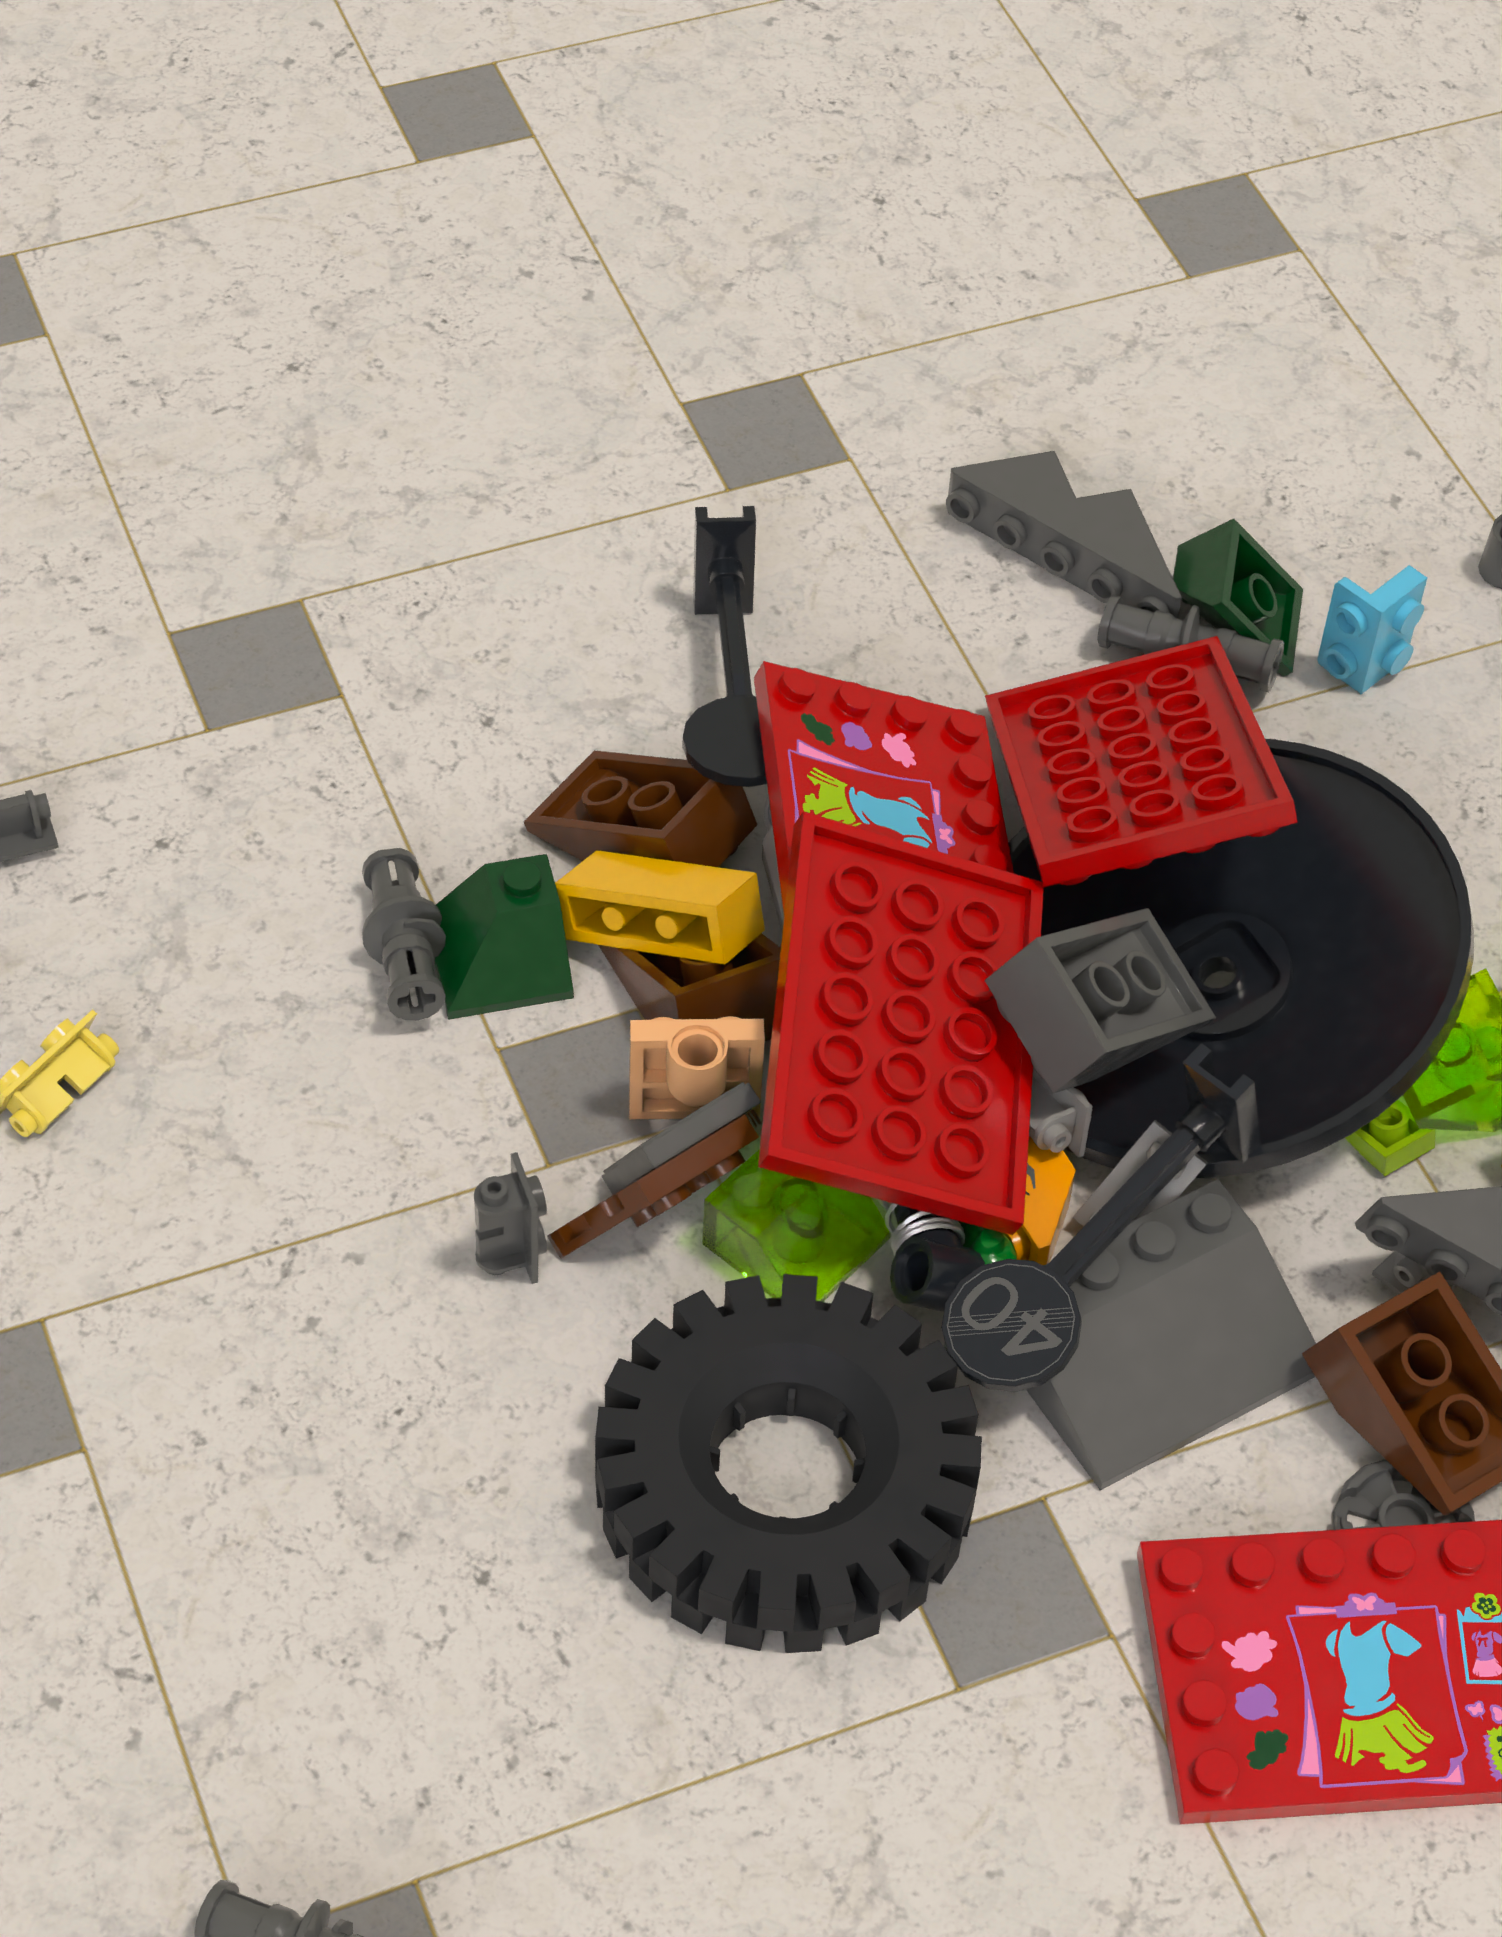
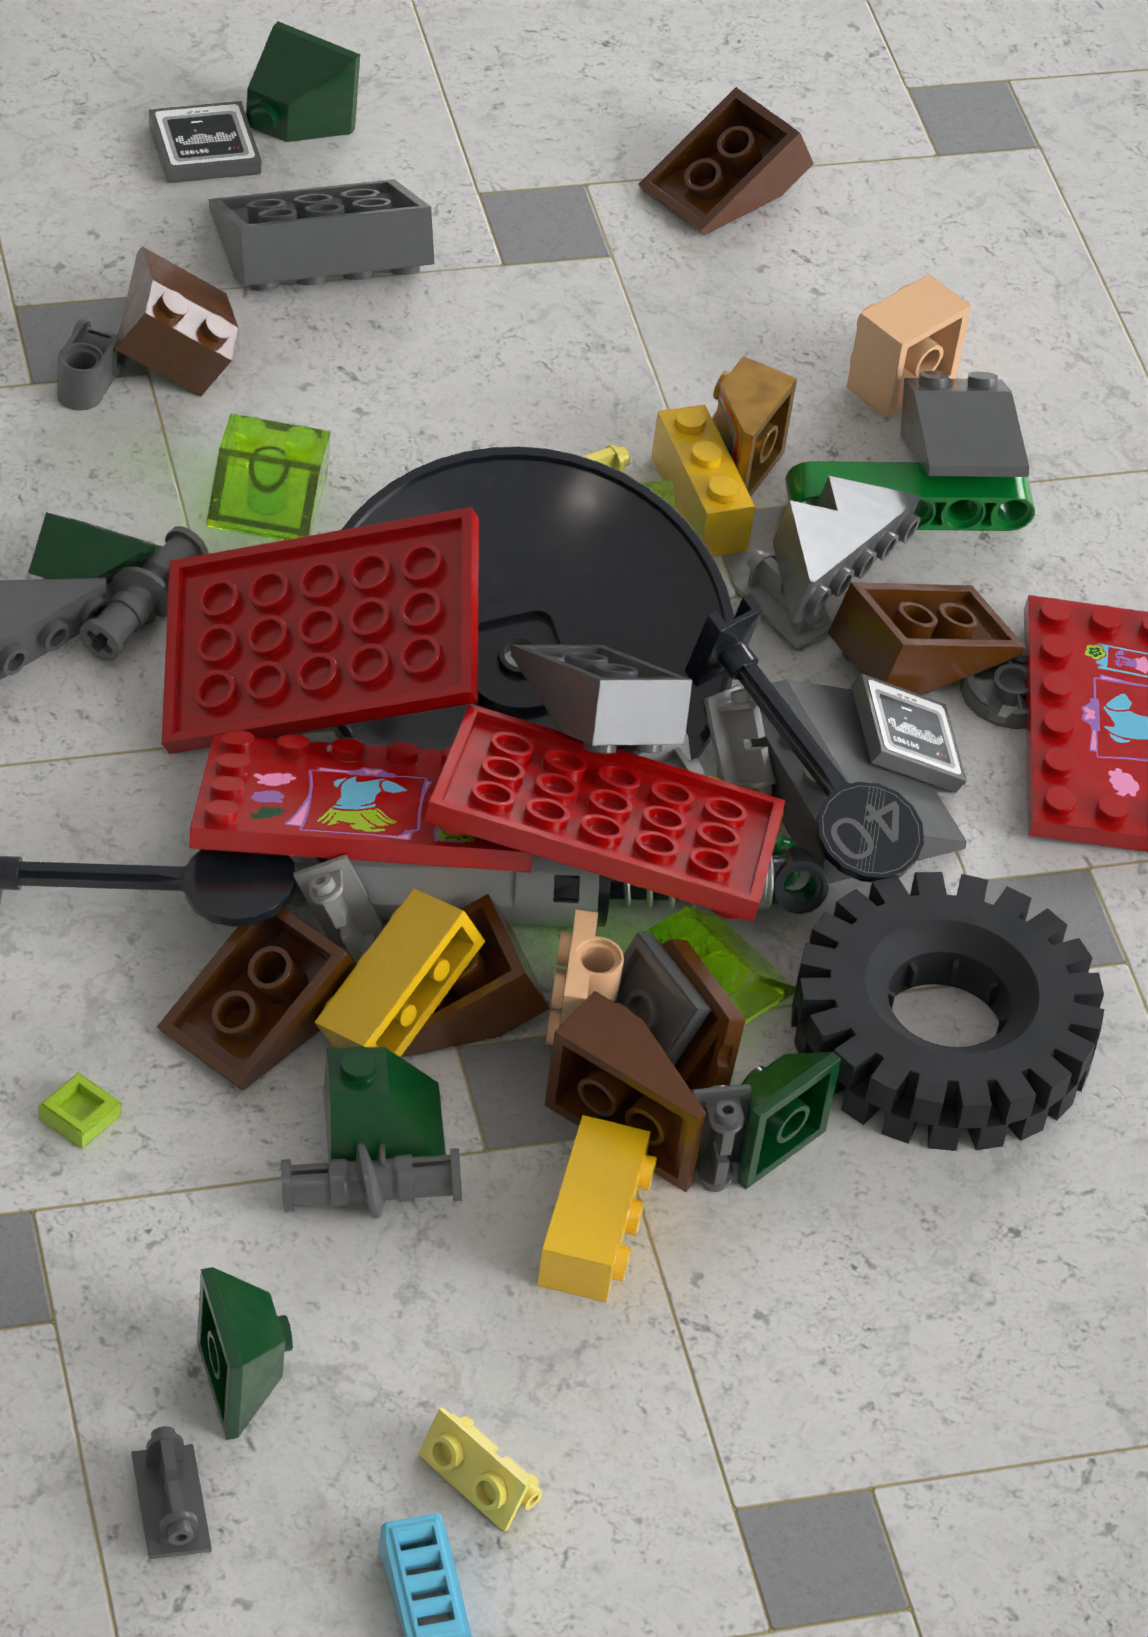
camera: 85 degrees left, 5 degrees down
(148, 840) = (239, 1346): none -> dark green slope
(407, 1134) = (596, 1209): none -> yellow brick
(468, 706) = (79, 1110): none -> lime tile
(567, 1285) = (785, 1110): none -> dark green slope
(572, 1114) = (617, 1072): none -> reddish brown slope
(743, 819) = (341, 905): none -> light grey hinge
(1244, 1389) = (908, 733): none -> tile
(1371, 632) = (174, 469): medium azure bracket -> none
(1424, 726) = (269, 478): none -> clear neon green slope

